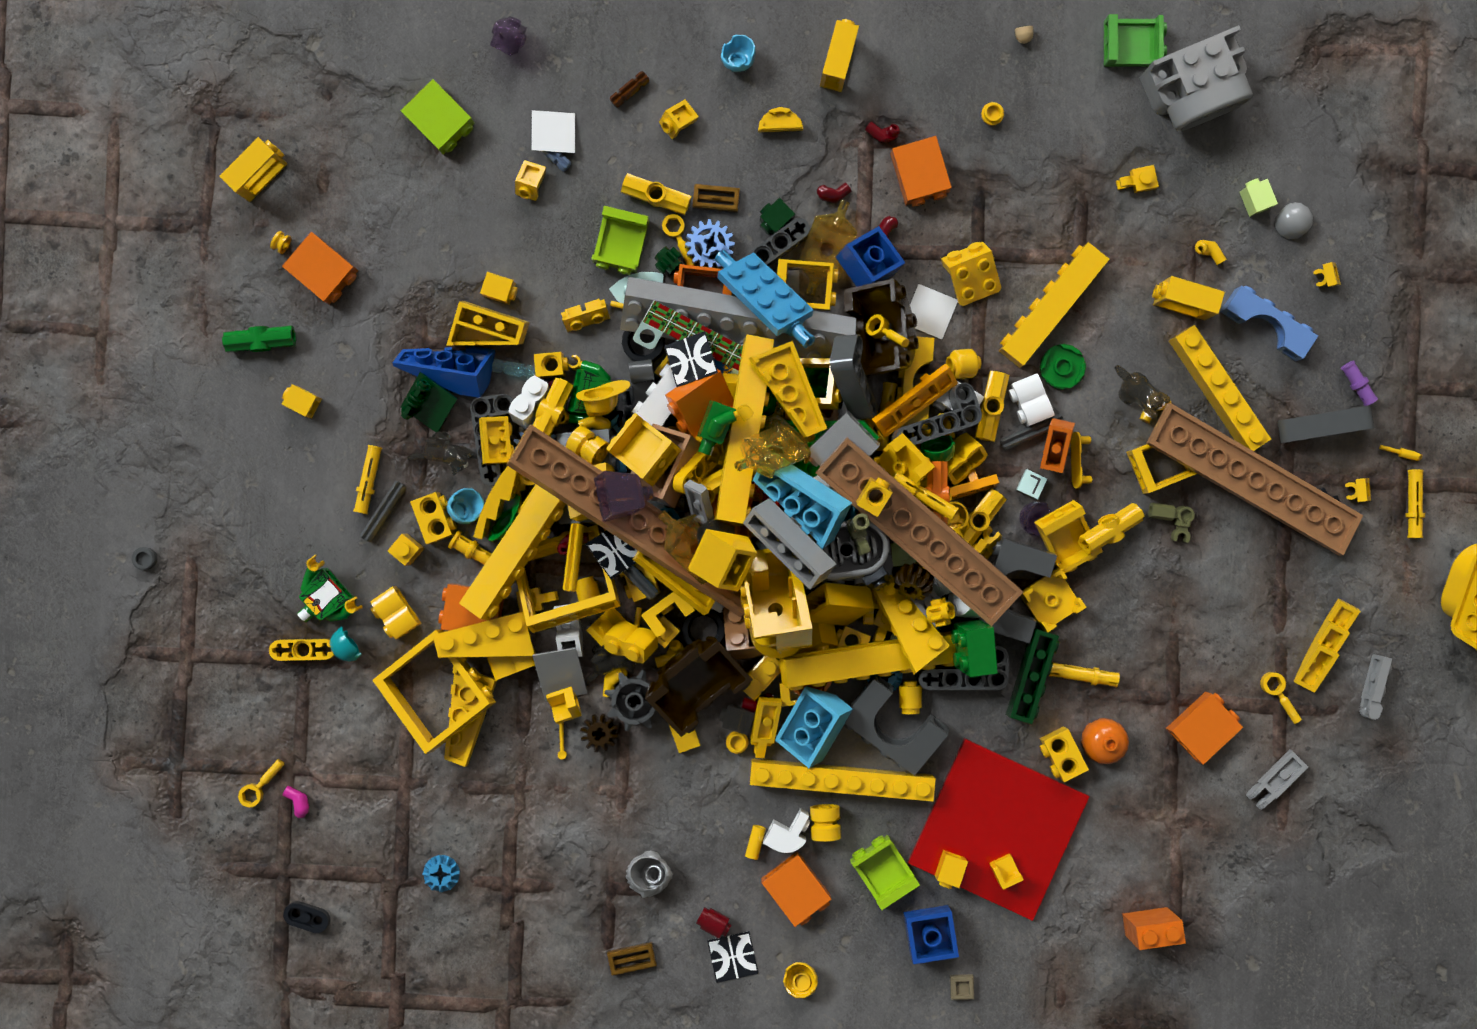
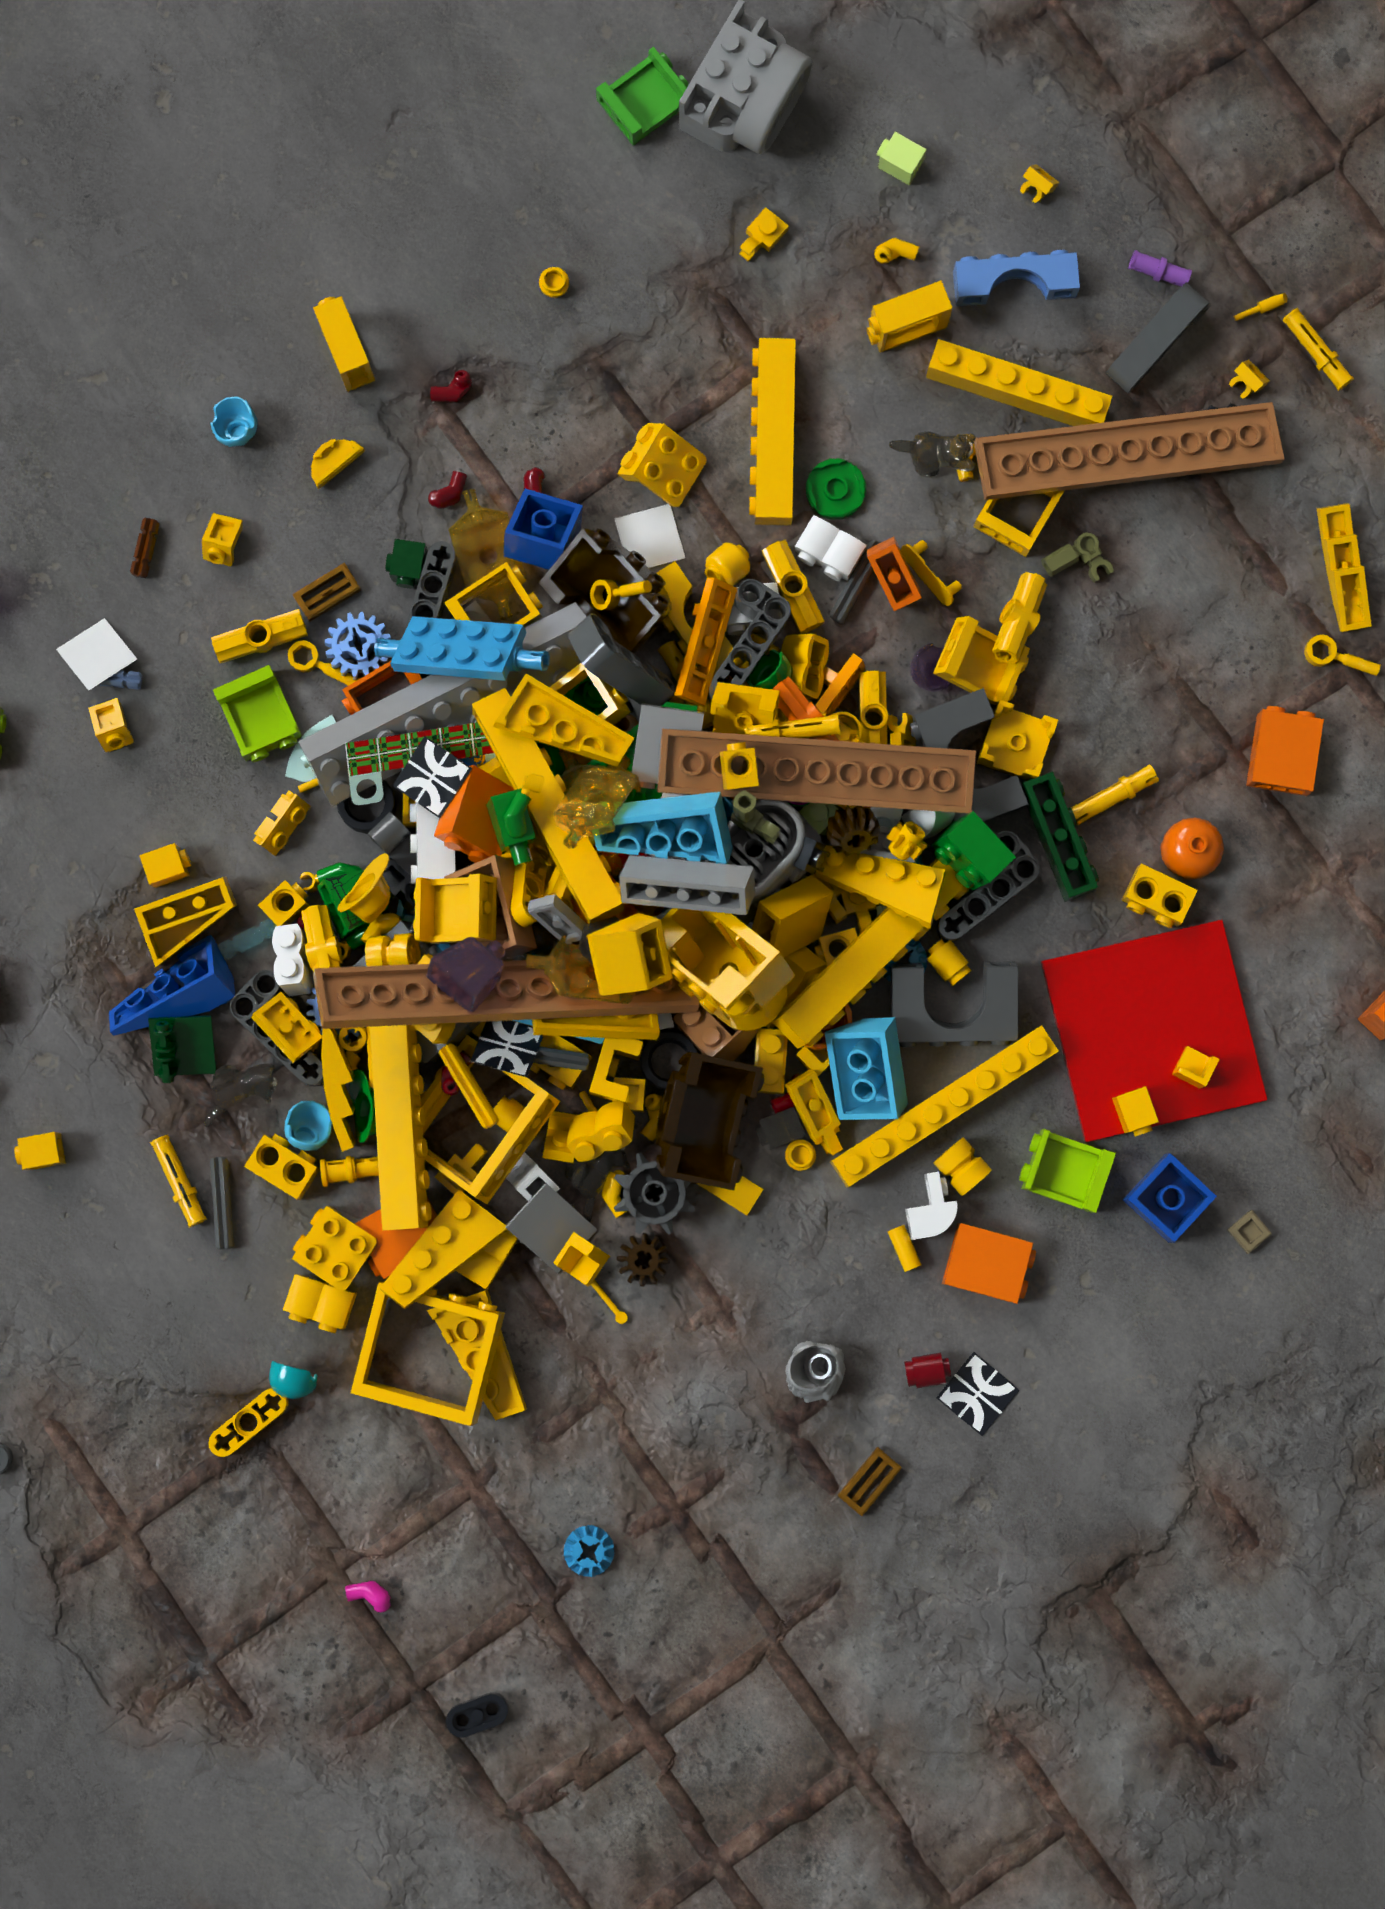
camera: 40 degrees left, 5 degrees down
(265, 779) = (315, 1597): yellow piece -> none
(324, 595) = (227, 1342): torso -> none
(406, 549) = (278, 1223): yellow brick -> none
(426, 589) = (334, 1248): none -> yellow bracket
(668, 260) = (326, 696): dark green gear -> none
(800, 980) = (1069, 1358): yellow hair -> none
(921, 171) = (524, 398): orange brick -> none
(1024, 34) = (523, 174): tan hinge -> none
(1031, 484) = (900, 637): light aqua tile -> none
(1294, 220) = (958, 154): light grey hair -> none

